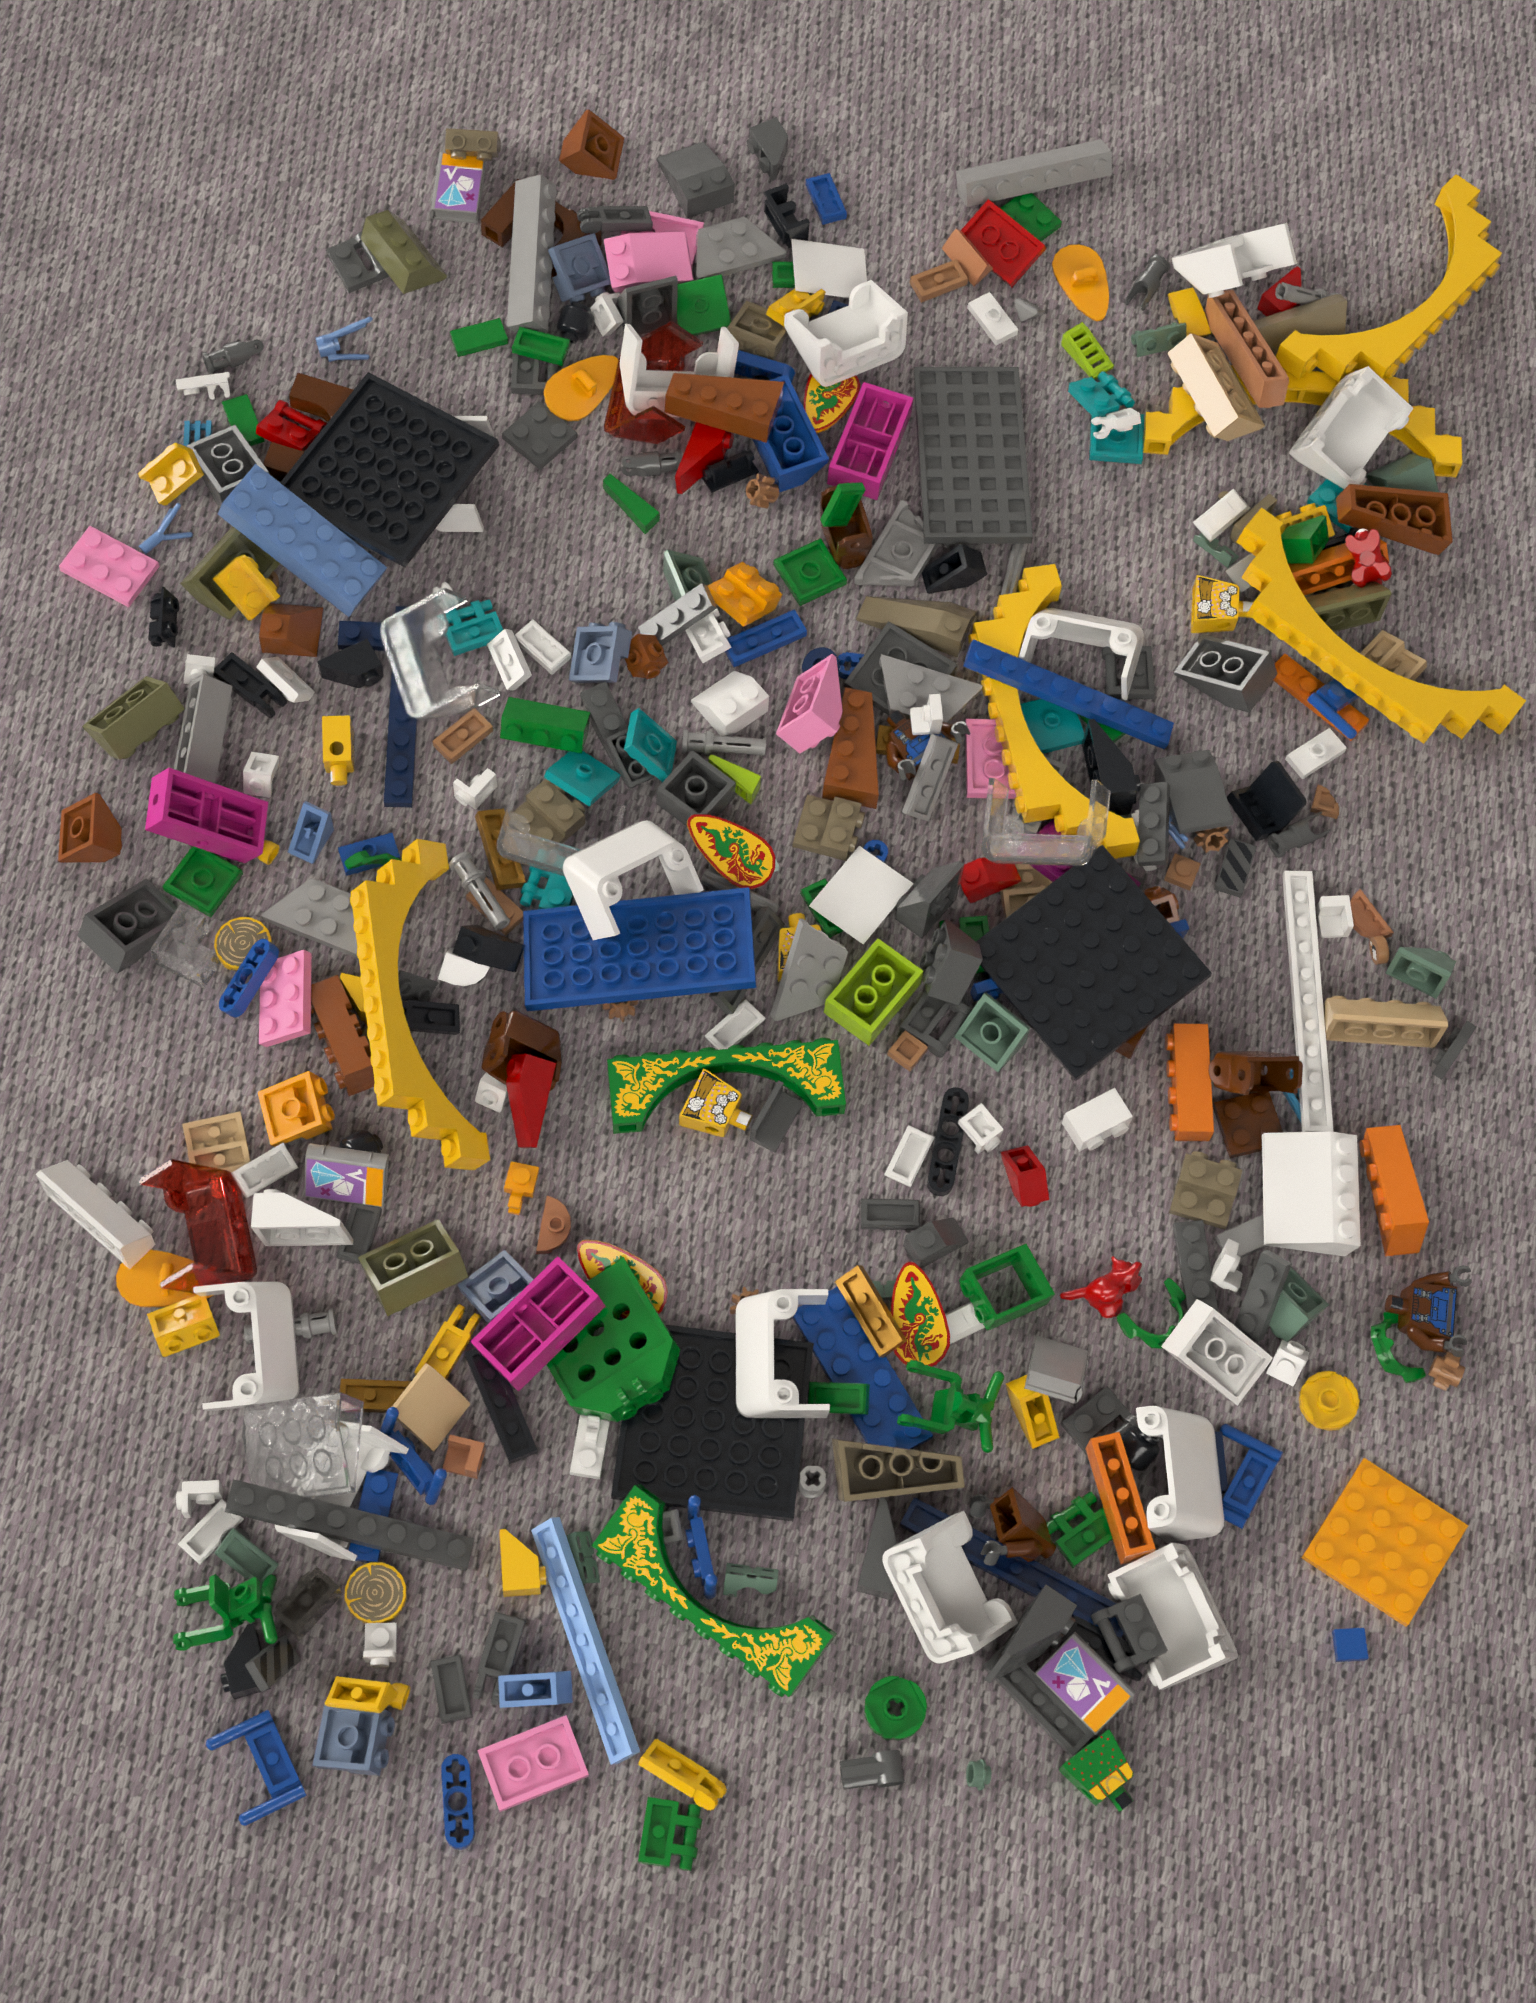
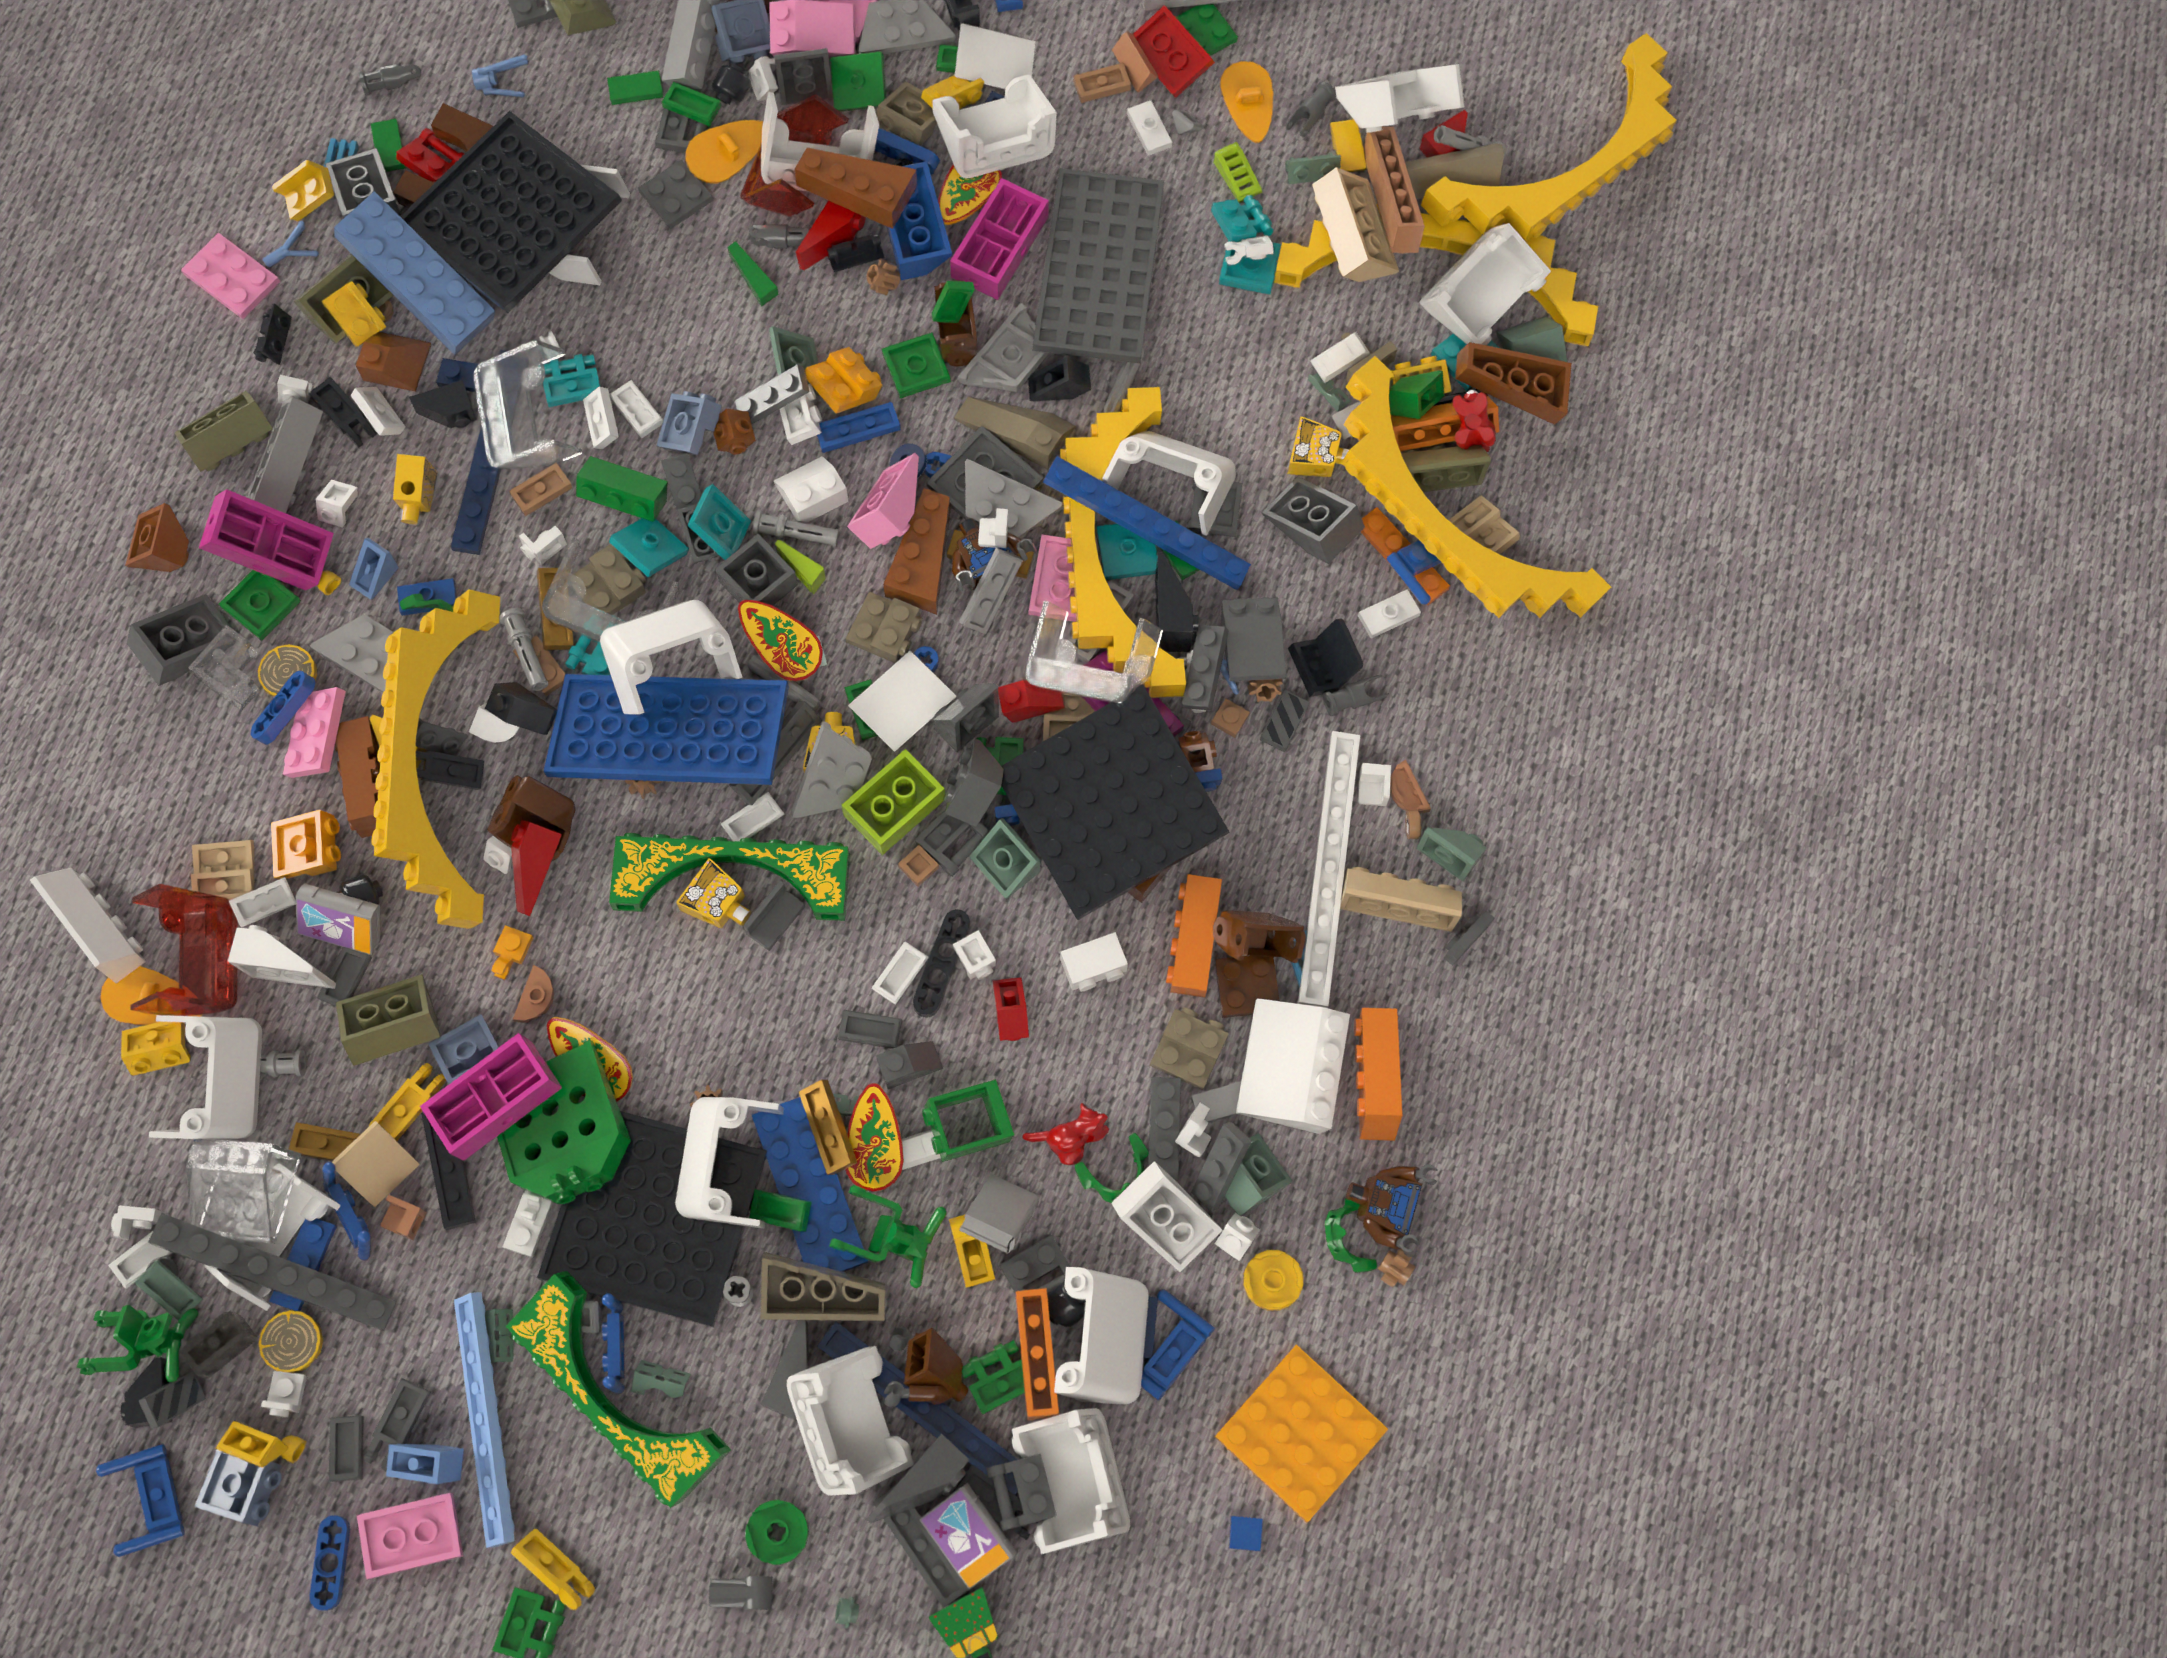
camera: 10 degrees right, 5 degrees up
(192, 384) = (343, 104): white plate -> none
(519, 1567) = (433, 1337): yellow slope -> none
(1325, 803) = (1388, 666): medium nougat tile -> none

